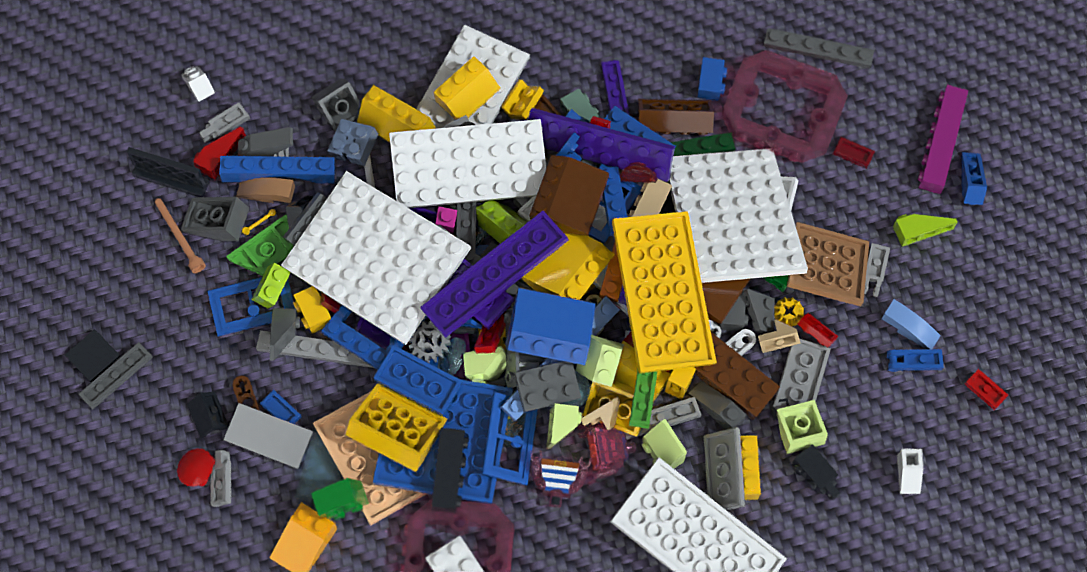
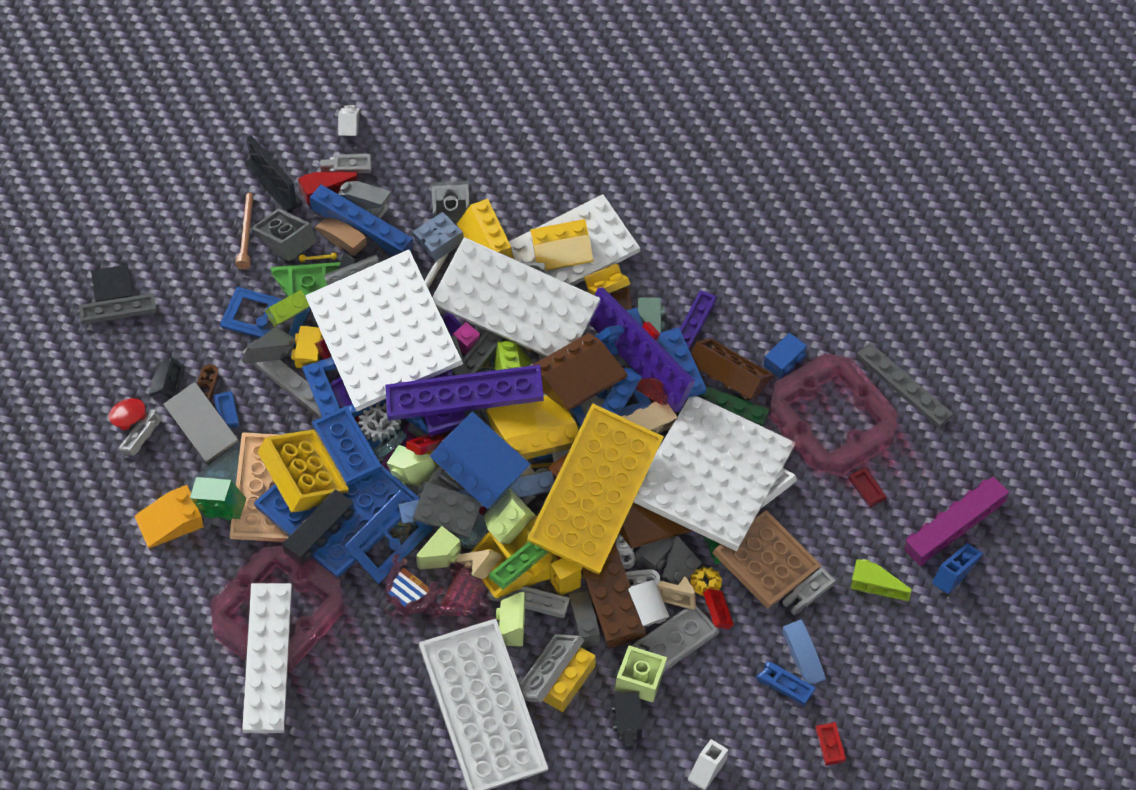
camera: 35 degrees right, 10 degrees down
(768, 362) = (649, 603): none -> white brick

